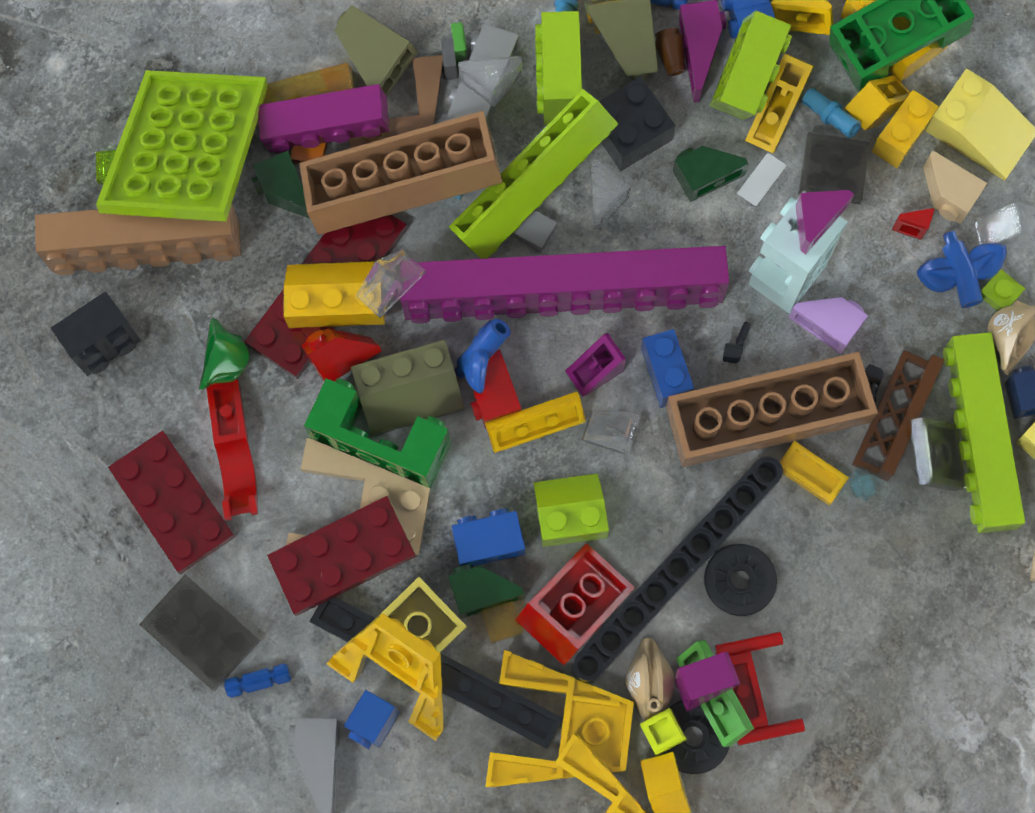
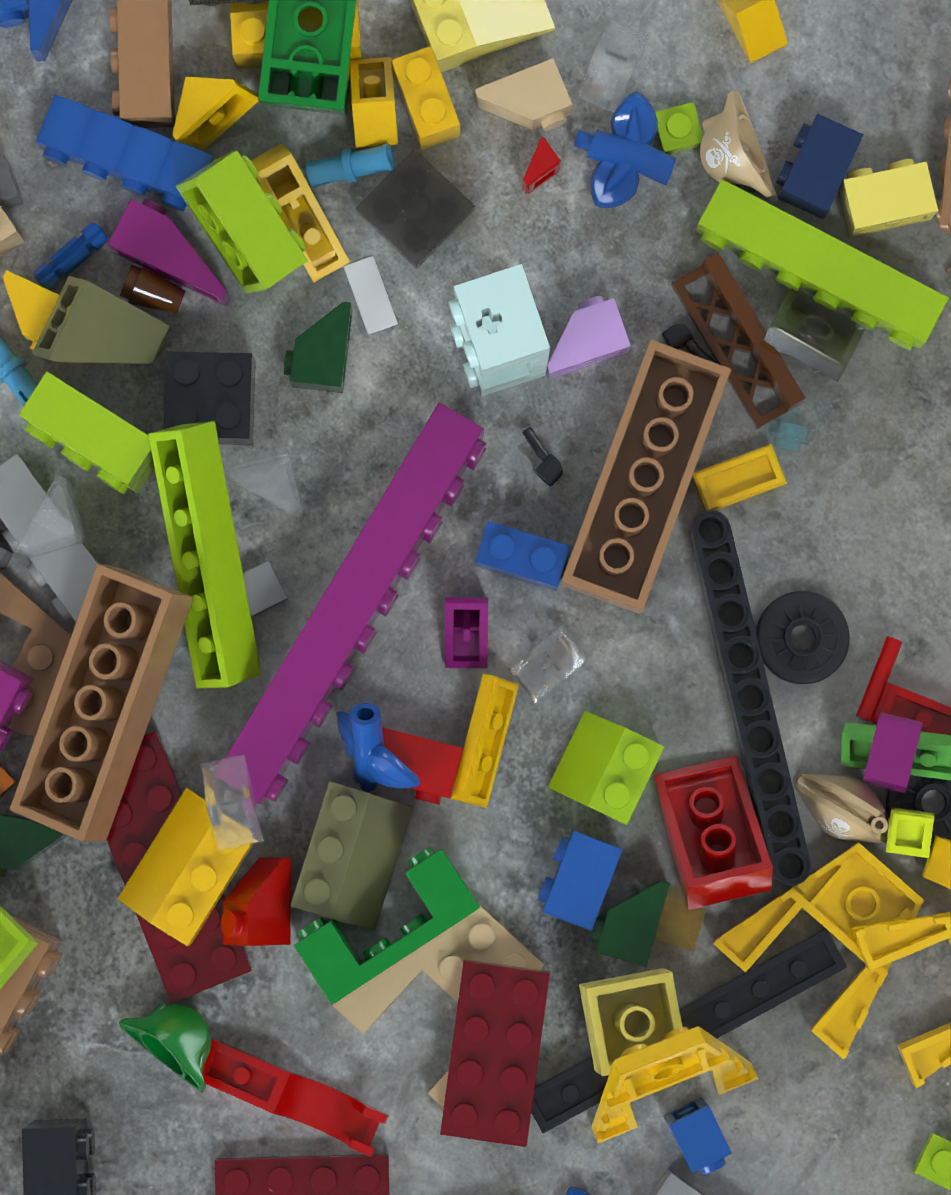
camera: 60 degrees left, 10 degrees up
(817, 214) = (497, 294): magenta slope -> none

